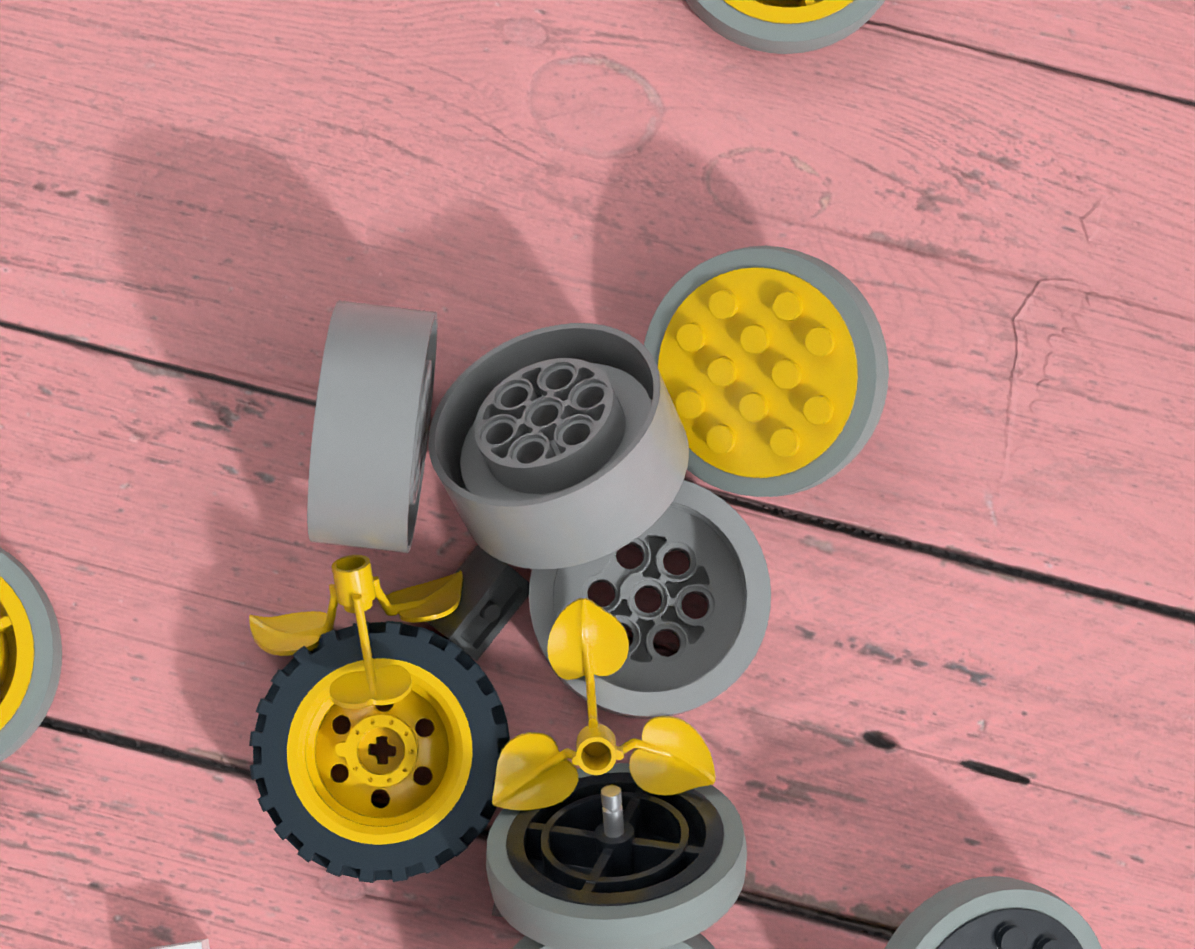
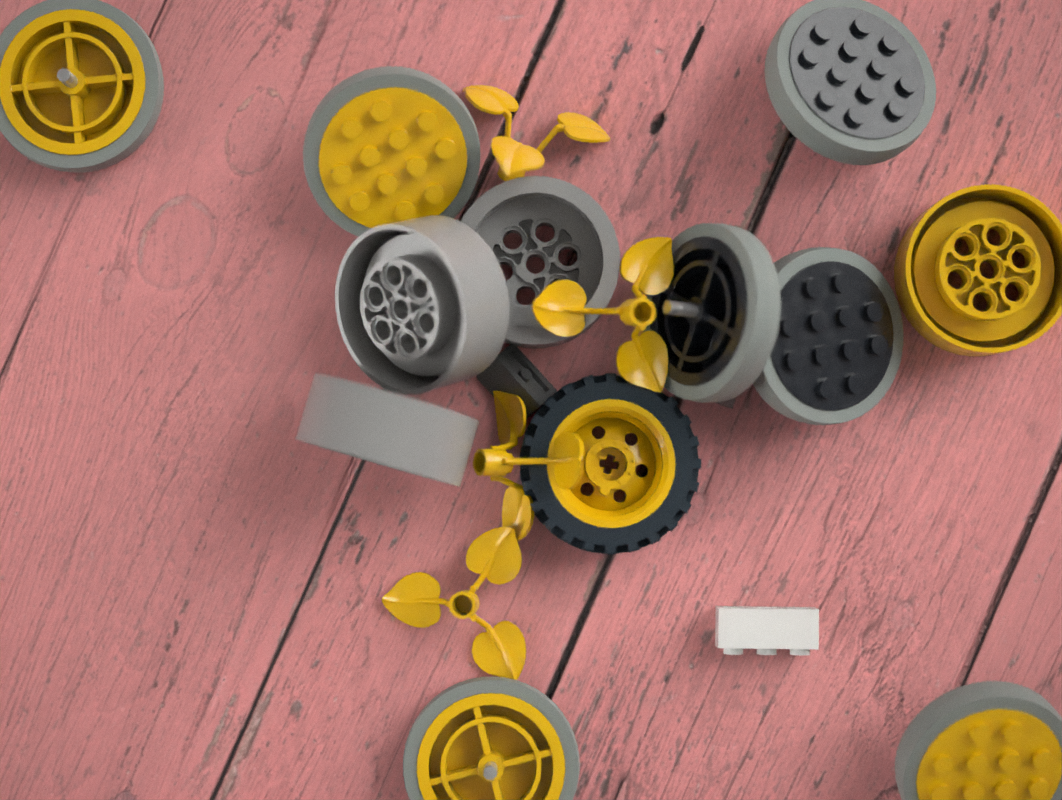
camera: 75 degrees left, 5 degrees up
(226, 615) = (494, 557): none -> yellow plant
(789, 547) = (514, 156): none -> yellow plant

